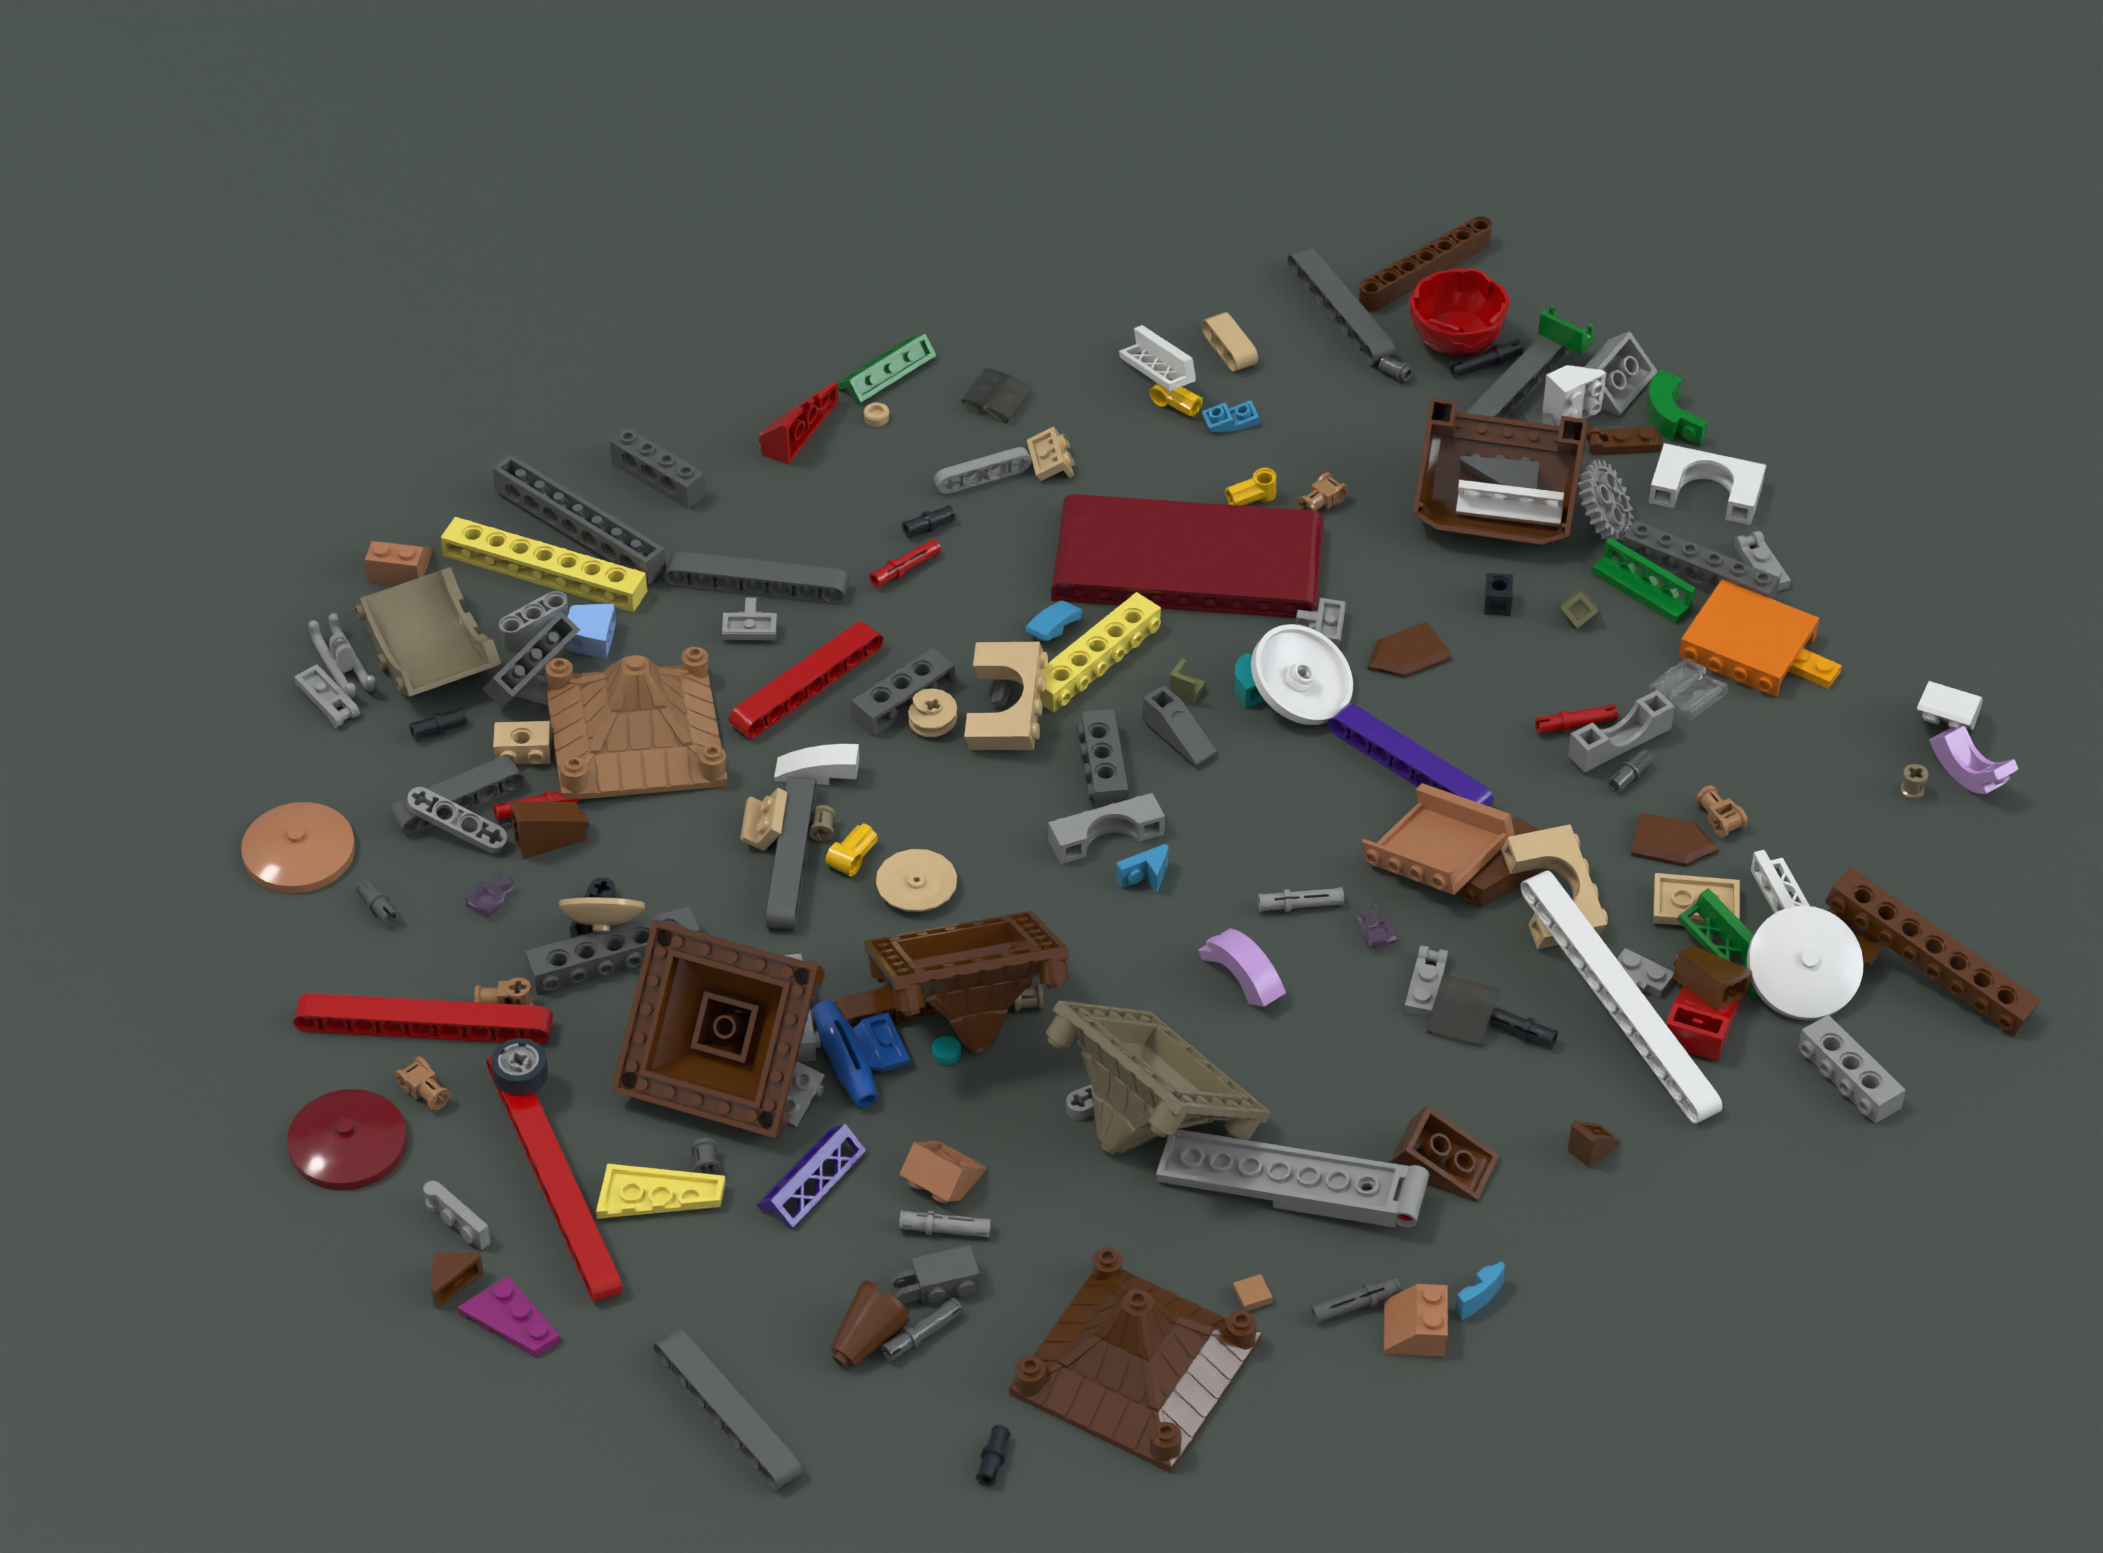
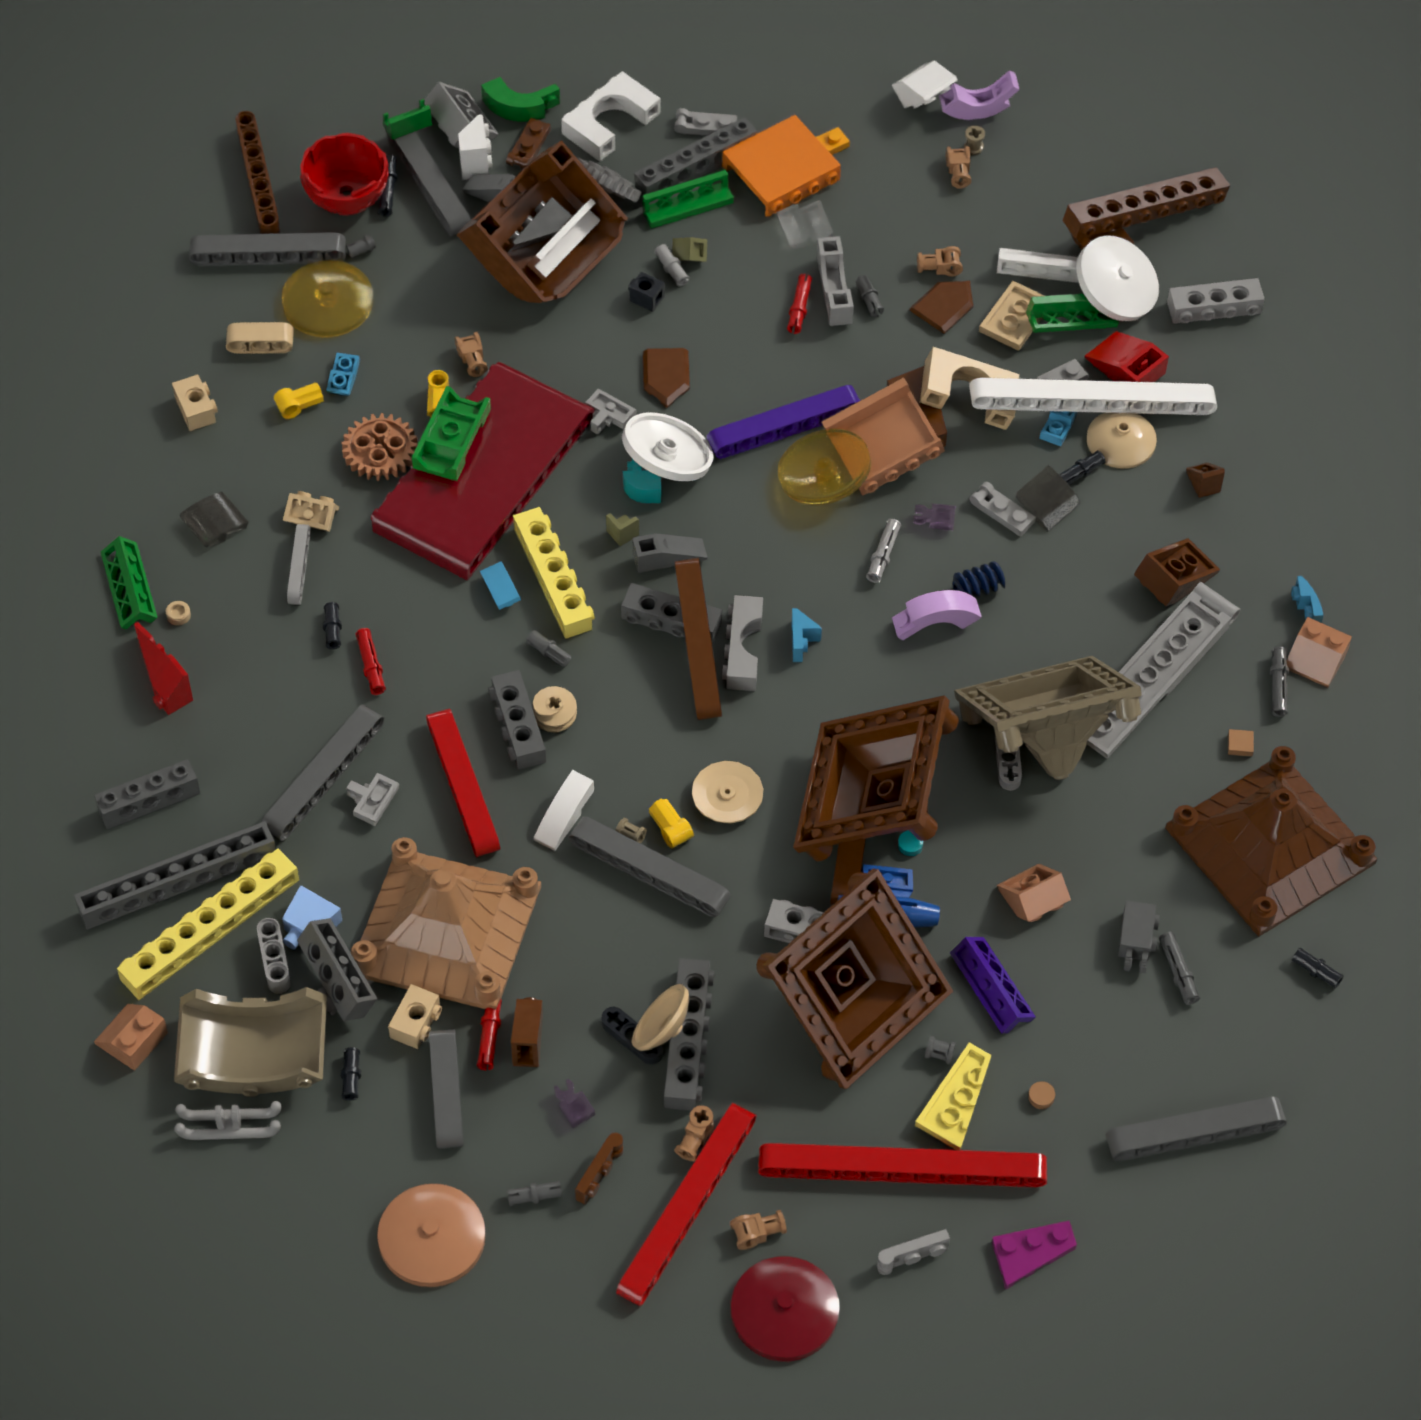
camera: 65 degrees left, 10 degrees up
(326, 695) = (264, 1149): light grey plate -> none
(428, 937) = (599, 1167): none -> reddish brown plate
(453, 1273) = (973, 1278): reddish brown slope -> none
(459, 815) = (484, 1098): light grey beam -> none
(515, 1078) = (783, 1149): black wheel -> none
(700, 1264) = (1041, 1095): none -> medium nougat tile
(763, 819) = (607, 869): tan bracket -> none
(867, 1324) = (1166, 1000): reddish brown cone -> none
(946, 1224) = (1080, 920): light grey pin -> none
(1018, 725) = (561, 619): tan arch -> none
(1075, 780) = (698, 639): none -> reddish brown beam
(1116, 328) = (194, 402): none -> tan brick
(1144, 465) = (381, 452): none -> nougat gear
(1167, 359) = (259, 385): white fence -> none
(1194, 502) = (450, 435): none -> green piece
(1308, 987) = (979, 579): none -> dark blue piece
(1316, 372) = (327, 298): none -> clear yellow dish
(1367, 808) = (824, 467): none -> clear yellow dish
(1549, 602) = (671, 265): none -> light grey pin
(1570, 992) = (1057, 427): none -> dark azure slope
(1597, 1054) = (1122, 447): none -> tan dish
(1711, 977) = (1100, 338): reddish brown slope -> none
(1871, 780) = (958, 164): none -> medium nougat connector

